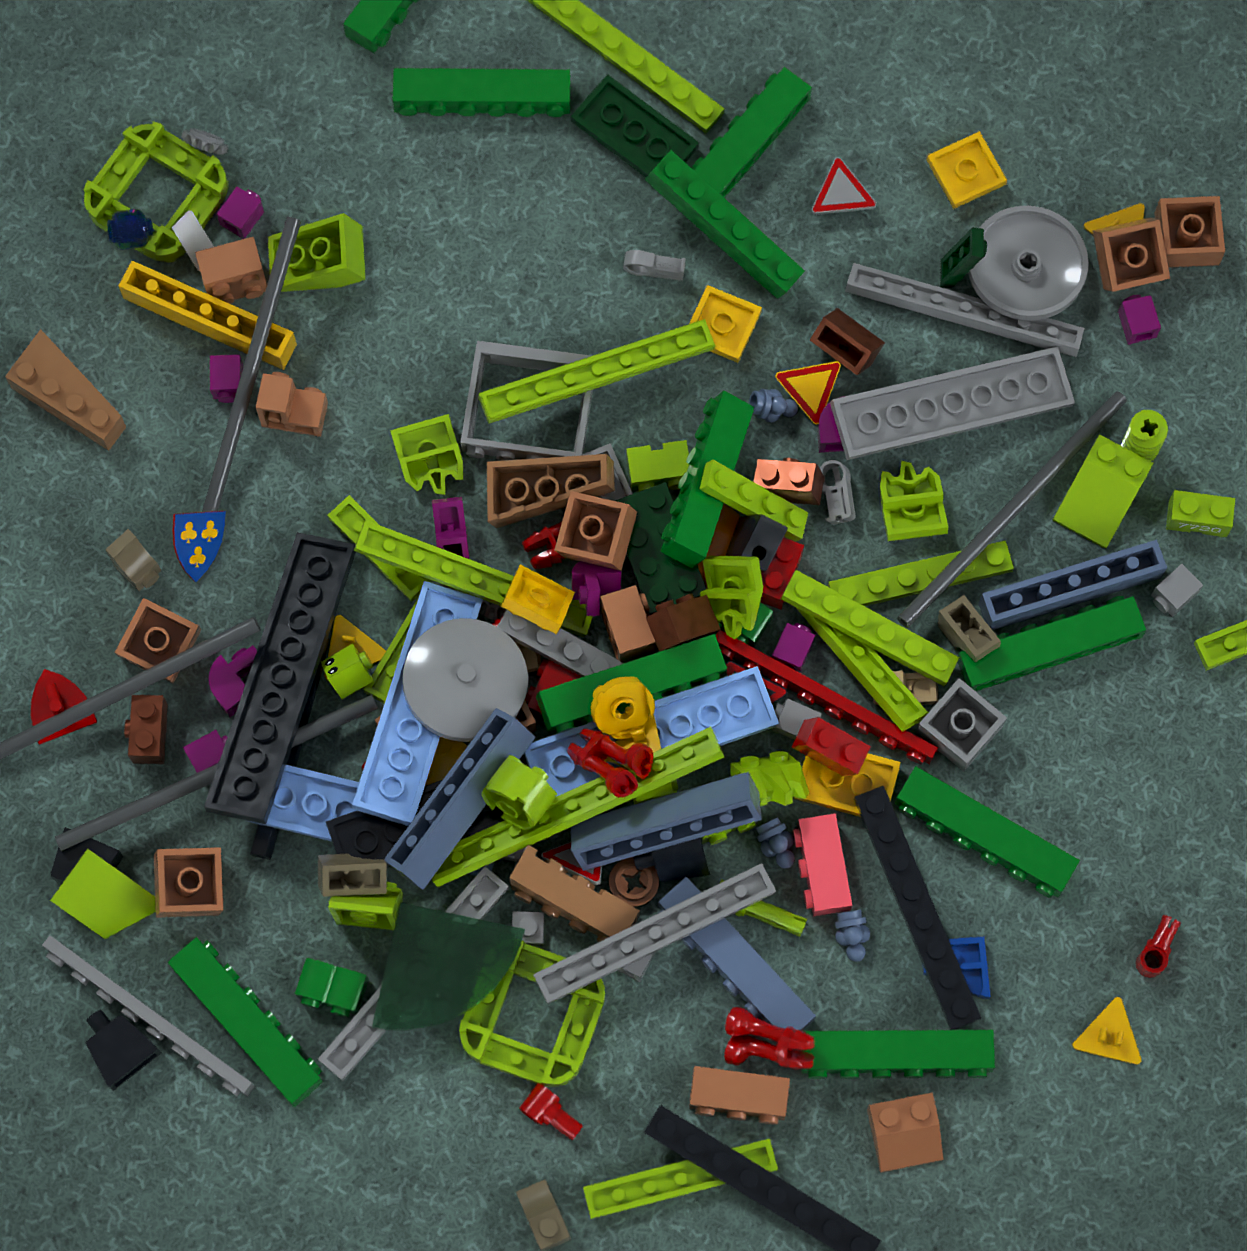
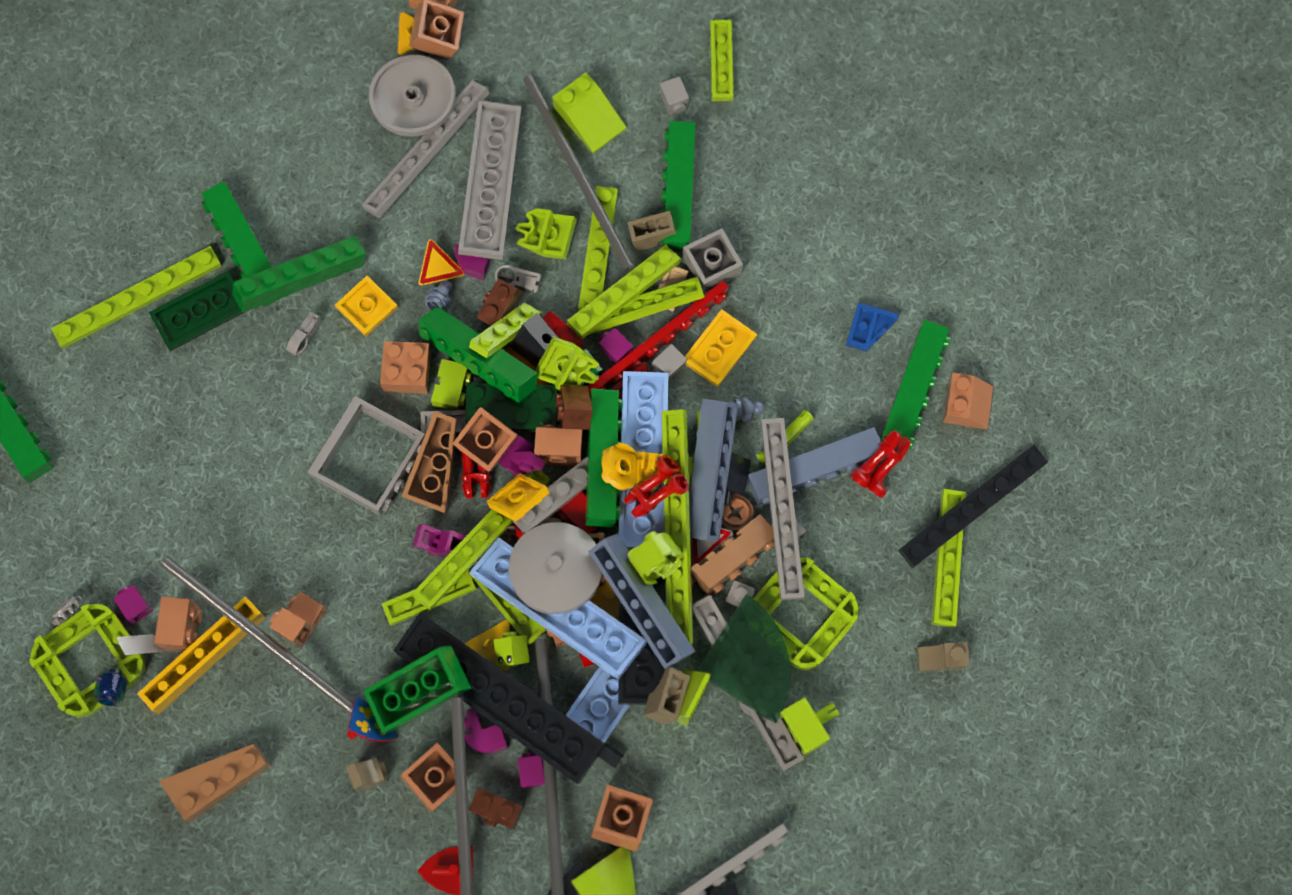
camera: 70 degrees left, 0 degrees up
(225, 376) = (255, 659): magenta brick -> none
(245, 1021) = (735, 813): green brick -> none
(254, 576) = (416, 689): none -> green brick
(324, 255) = (195, 551): lime slope -> none
(331, 987) = (732, 744): green brick -> none
(384, 1067) = (807, 726): none -> lime brick
(428, 453) = (374, 537): lime plate -> none
(481, 91) = (120, 402): green brick -> none
(544, 1107) = (870, 629): red pin -> none
(596, 371) = (366, 400): lime tile -> none
(660, 402) = (405, 367): none -> nougat brick
(739, 1094) = (906, 498): nougat brick -> none
(775, 776) = (702, 386): lime plate -> none
(822, 865) = (772, 385): coral brick -> none
(831, 746) = (698, 345): red brick -> none
(842, 192) = (307, 192): piece -> none
(847, 341) = (416, 229): copper brick -> none
(852, 933) = (823, 384): sand blue piece -> none
(917, 908) = (824, 336): black plate -> none
(962, 257) = (393, 131): dark green plate -> none
(966, 170) = (327, 109): yellow plate -> none
(986, 832) = (789, 274): green brick -> none
(1072, 585) = (646, 154): sand blue brick -> none
(1110, 1035) = (948, 253): yellow piece -> none
(1139, 318) = (480, 44): magenta brick -> none
(1146, 434) = (564, 69): lime piece -> none
(1159, 947) = (905, 199): red pin -> none
(1200, 513) = (629, 60): lime brick -> none

